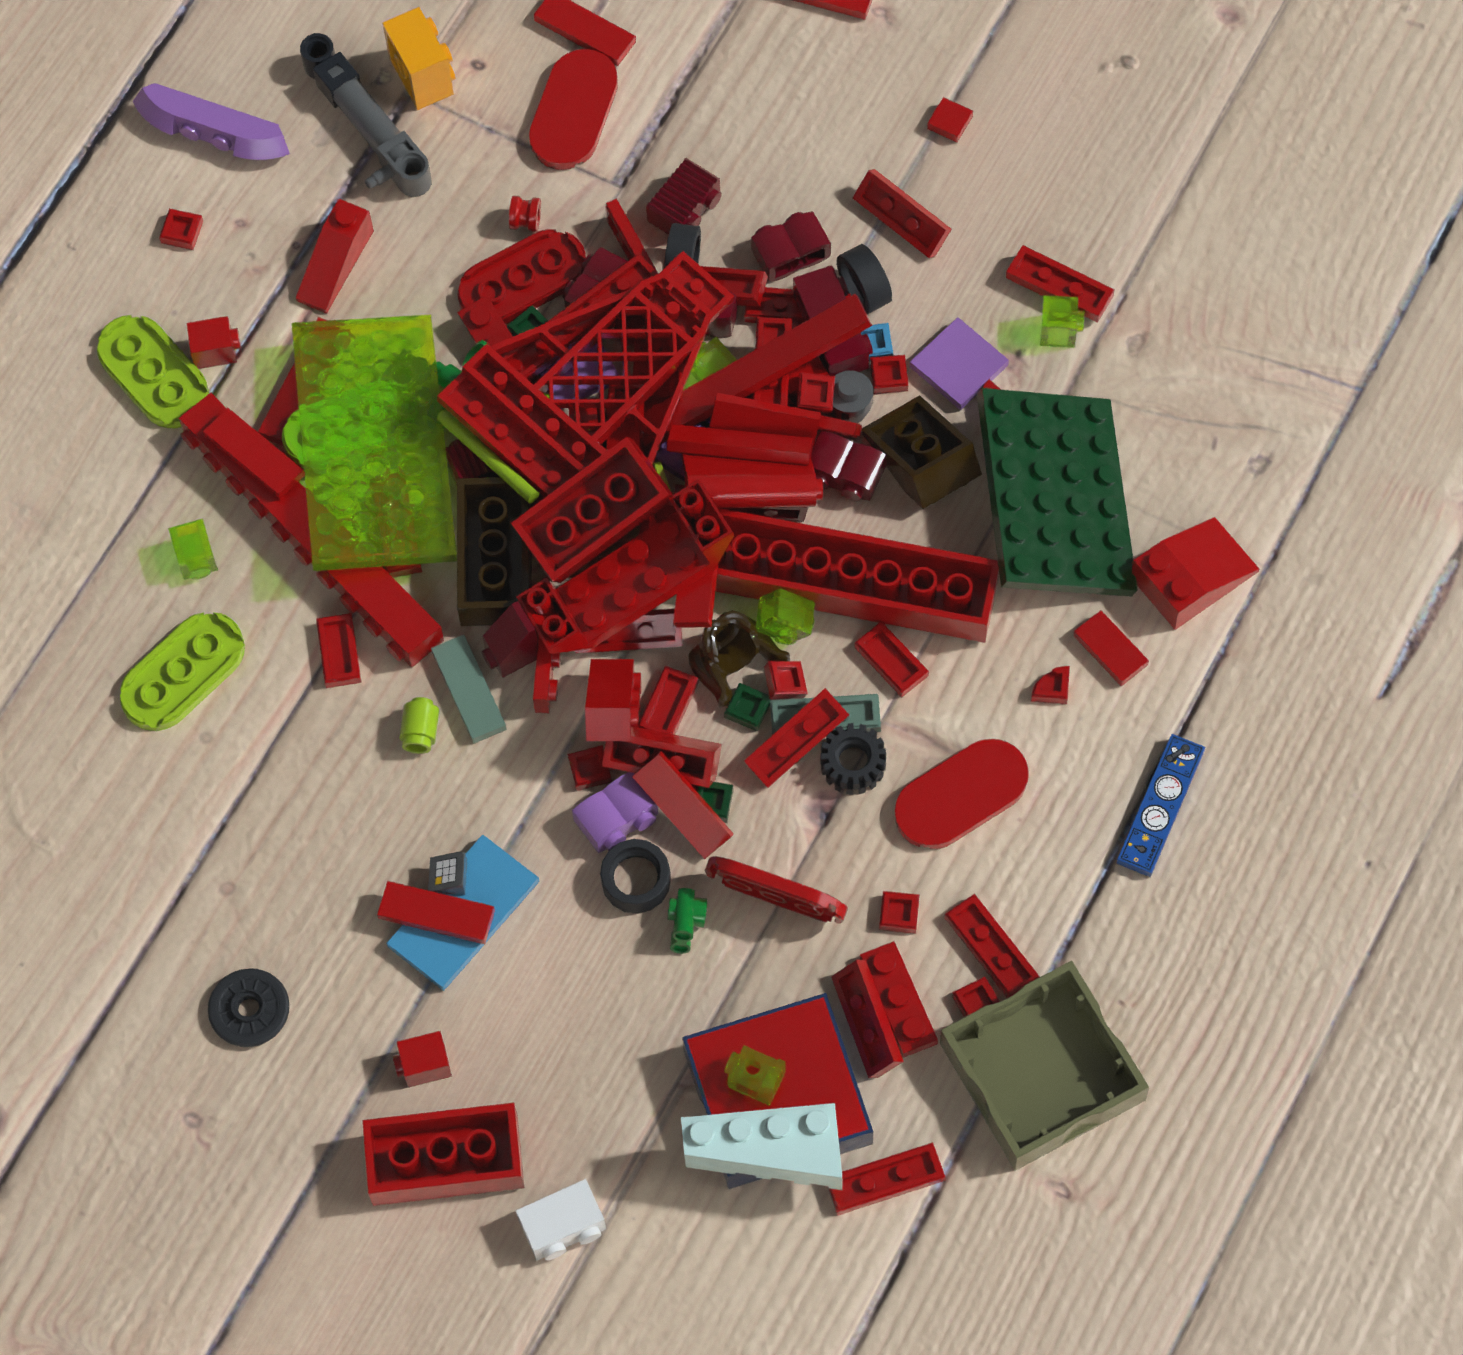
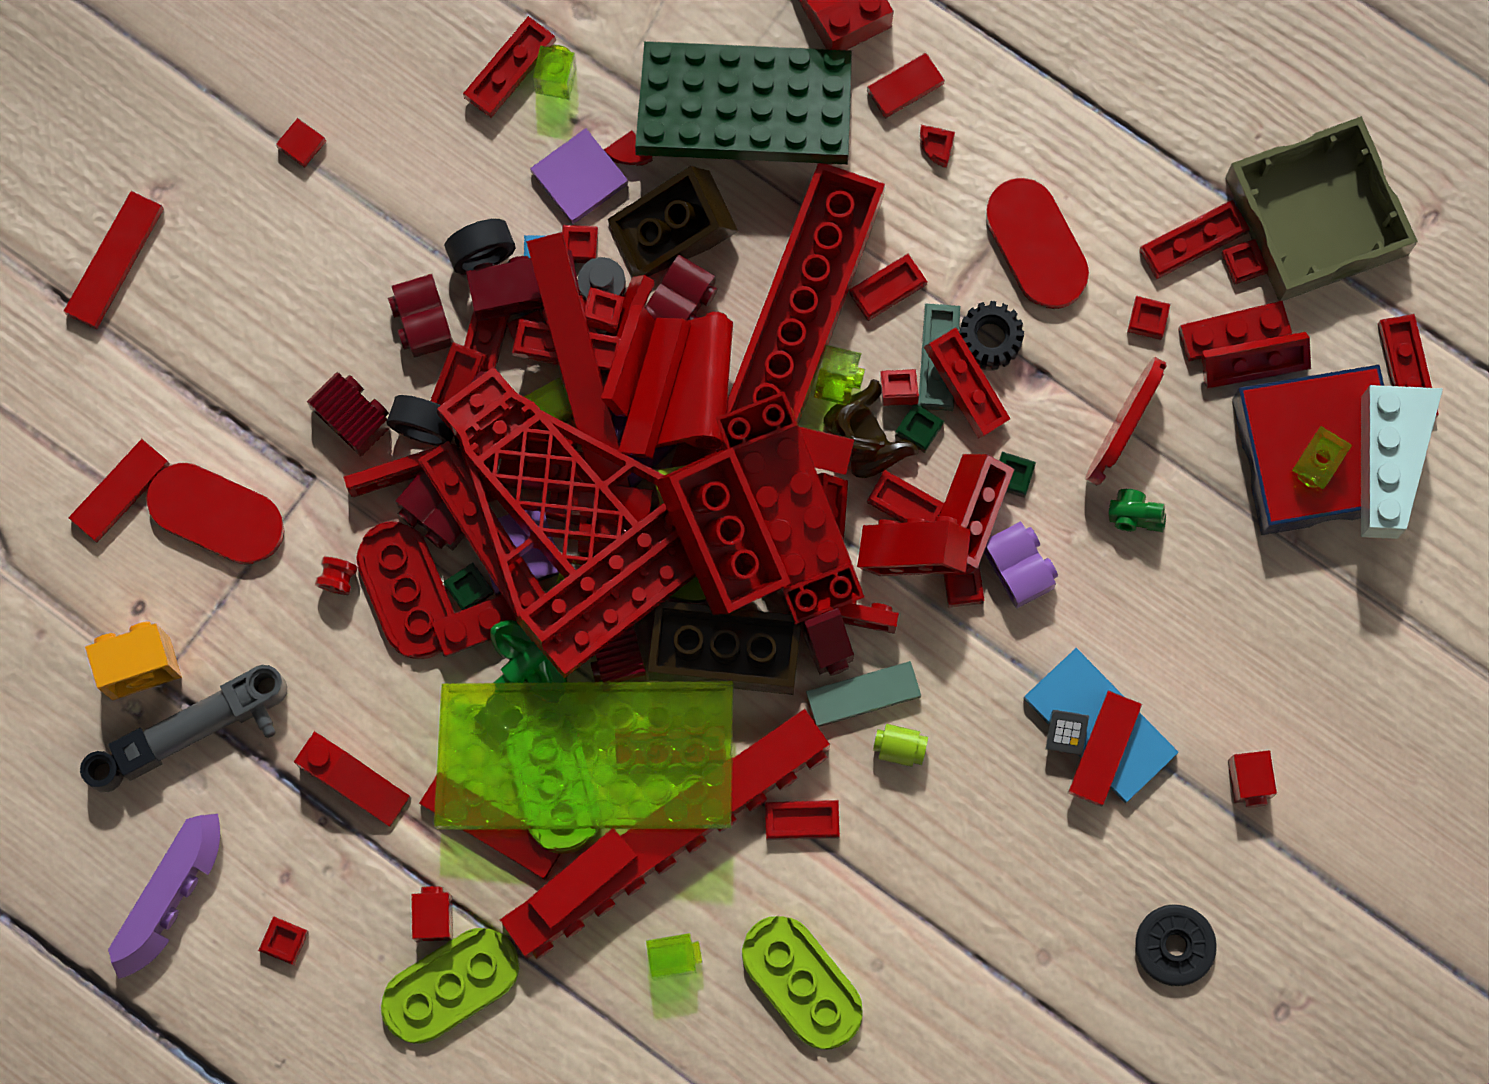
camera: 85 degrees left, 10 degrees up
(443, 1154) = (1355, 766): red brick -> none
(488, 456) = (630, 636): lime bar -> none
(561, 1221) = (1426, 664): white brick -> none
(627, 850) = (1092, 528): black tyre -> none
(683, 805) = (1026, 497): red tile -> none
(901, 213) = (404, 203): red plate -> none
(1161, 805) = (1071, 67): tile -> none

